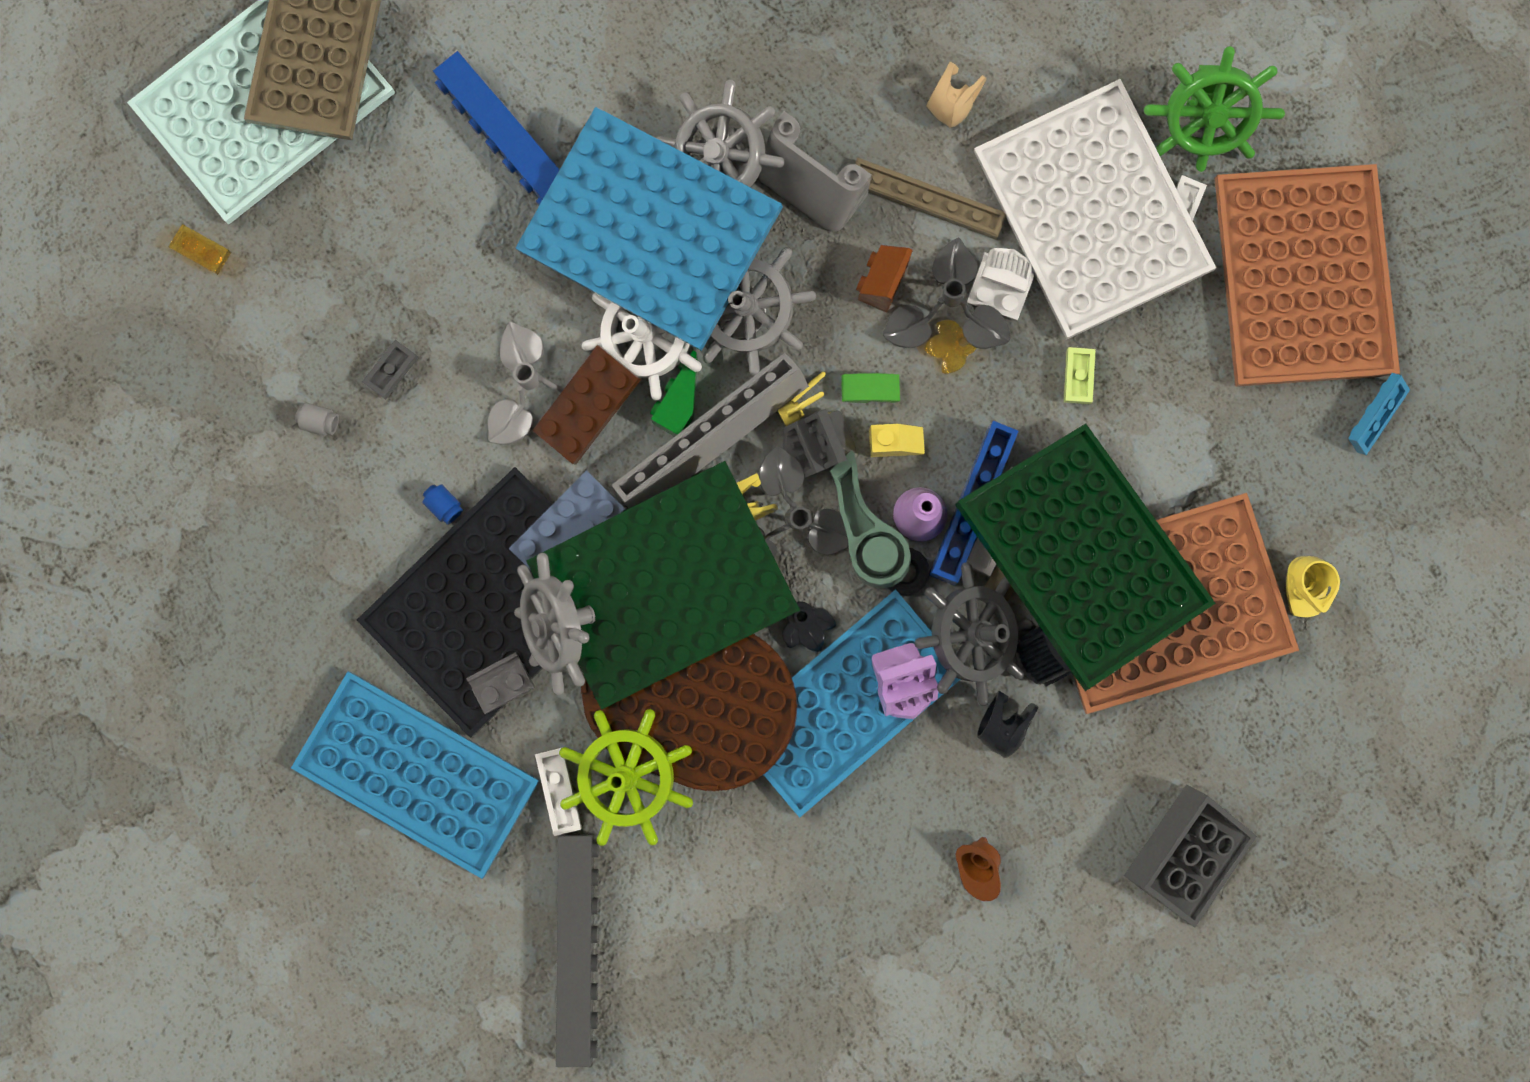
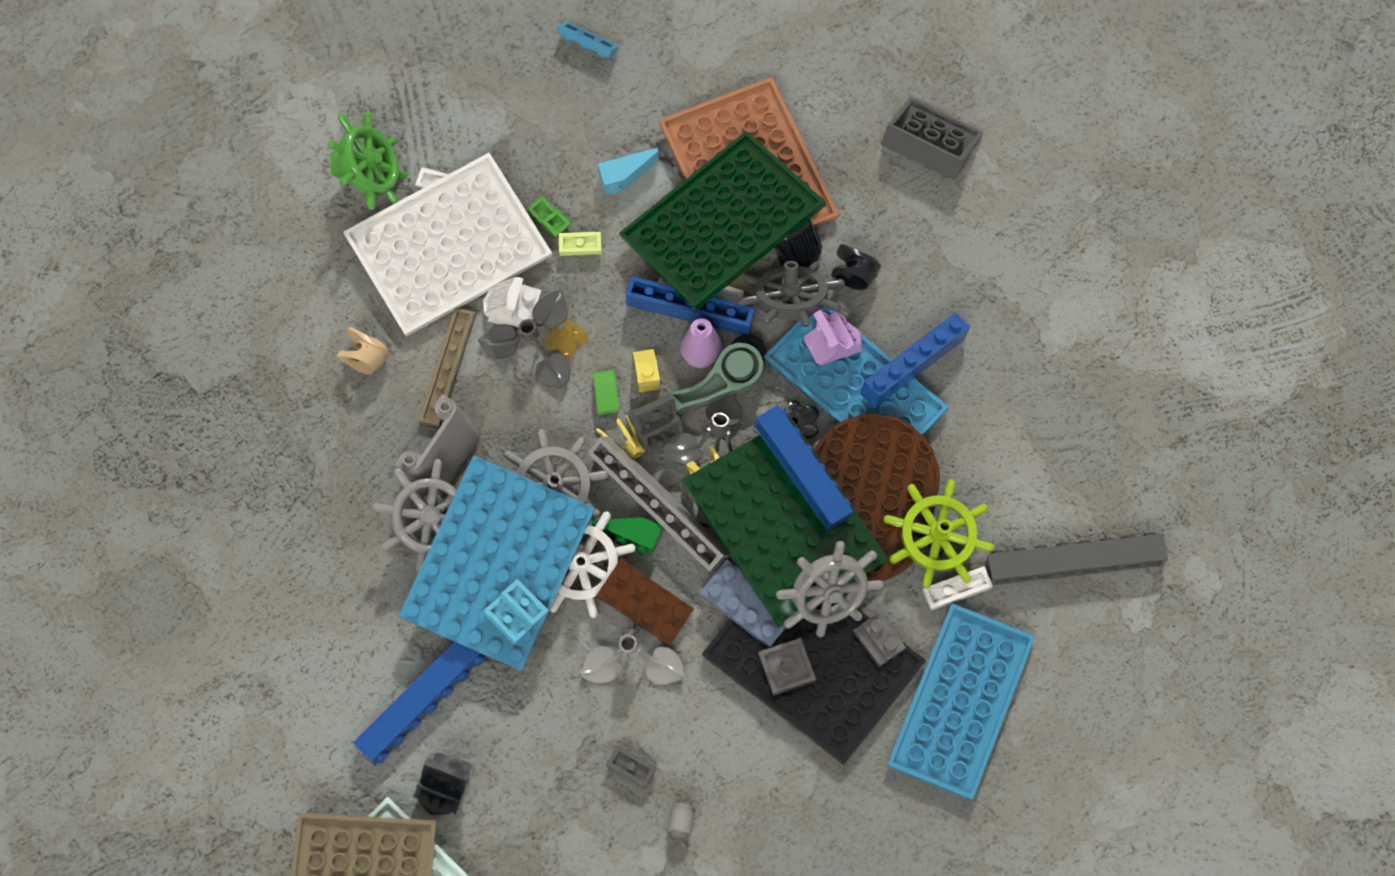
camera: 95 degrees left, 15 degrees down
(400, 152) = (442, 784): none -> black piece
(442, 504) = (739, 708): blue brick -> none
(479, 565) = (786, 666): none -> flat silver plate
(579, 242) = (515, 611): none -> medium azure slope
(721, 614) = (803, 467): none -> blue brick
(864, 782) = (914, 360): none -> blue brick
(884, 277) = (516, 386): dark orange slope -> none
(979, 869) = (966, 276): dark orange piece -> none
(1122, 340) = (548, 217): none -> bright green slope
(1176, 439) = (623, 171): none -> medium azure slope
(1306, 275) = (485, 95): nougat plate -> none
(1308, 585) = (721, 77): light yellow helmet -> none

